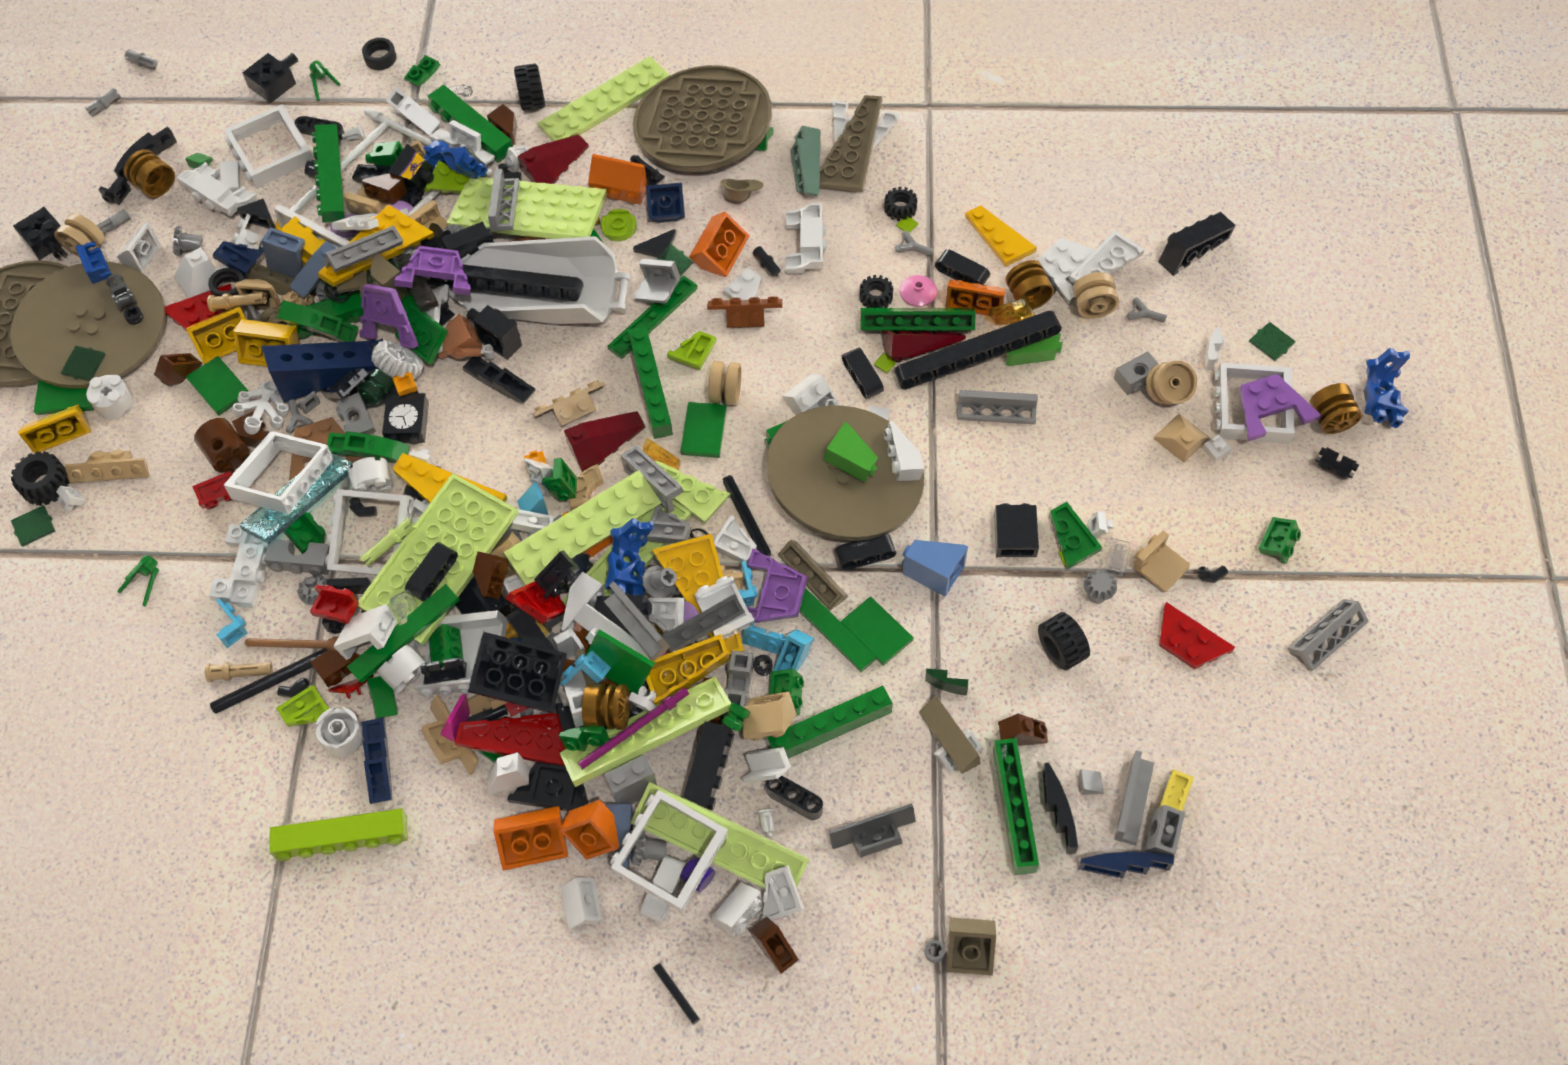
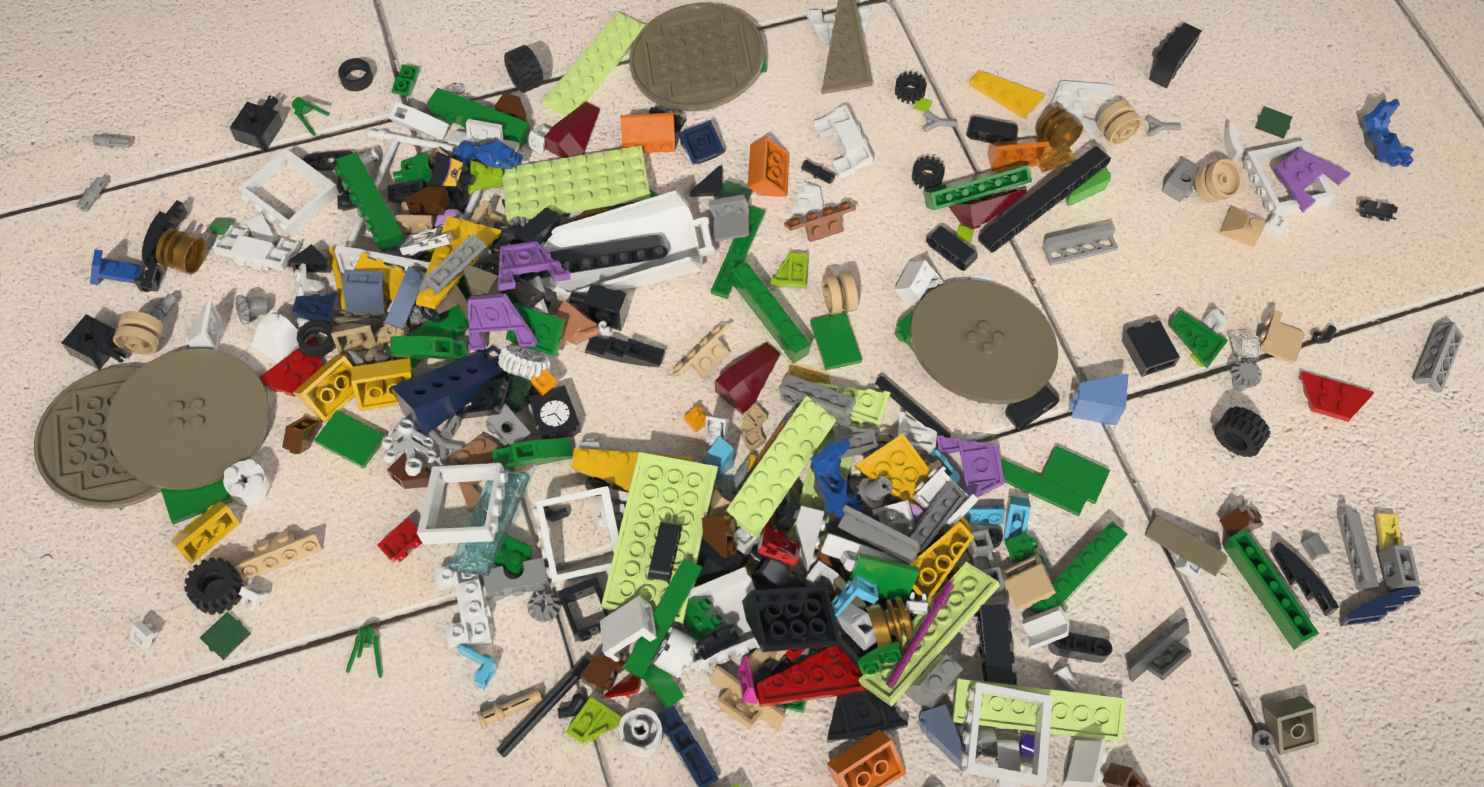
camera: 25 degrees left, 0 degrees up
(83, 363) = (204, 458): clear green piece -> none
(85, 173) = (112, 269): none -> blue bracket
(93, 262) = (167, 355): blue hinge -> none
(120, 292) = (211, 377): dark grey connector -> none
(134, 319) = (237, 398): black bush -> none
(221, 445) = (388, 495): reddish brown cylinder -> none
(229, 301) = (327, 354): tan pin -> none
(289, 643) = (589, 652): medium nougat piece -> none
(334, 604) = (581, 612): red bracket -> none
(370, 476) = (551, 480): white brick -> none
(394, 536) = (605, 536): yellowish green pin -> none
(401, 605) = (652, 590): clear bracket -> none
(498, 203) = (552, 186): light grey fence -> none
(507, 174) = (536, 157): black arm -> none
(507, 774) = (817, 717): white slope -> none
(531, 521) = (731, 477): white slope -> none
(556, 574) = (785, 515): black bracket -> none
(562, 482) = (738, 432): green bracket -> none
(591, 829) = (923, 740): orange slope -> none
(618, 225) = (664, 175): lime tile -> none
(735, 717) = (1005, 592): green wheel -> none
(739, 190) = (763, 113): dark tan piece -> none
(780, 894) = (1117, 738): white wing -> none
(806, 160) = (808, 71): sand green wedge -> none
(818, 580) = (1008, 449): dark tan slope -> none
(851, 454) = (987, 323): bright green slope -> none
(905, 457) = (1028, 311): white slope -> none
(918, 296) = (961, 161): bright pink dish -> none
(939, 679) = (1154, 501): dark green slope -> none
(1109, 256) = (1111, 87): white wing -> none
(1280, 538) = (1363, 287): green bracket -> none
(1336, 408) = (1358, 163): pearl gold wheel -> none

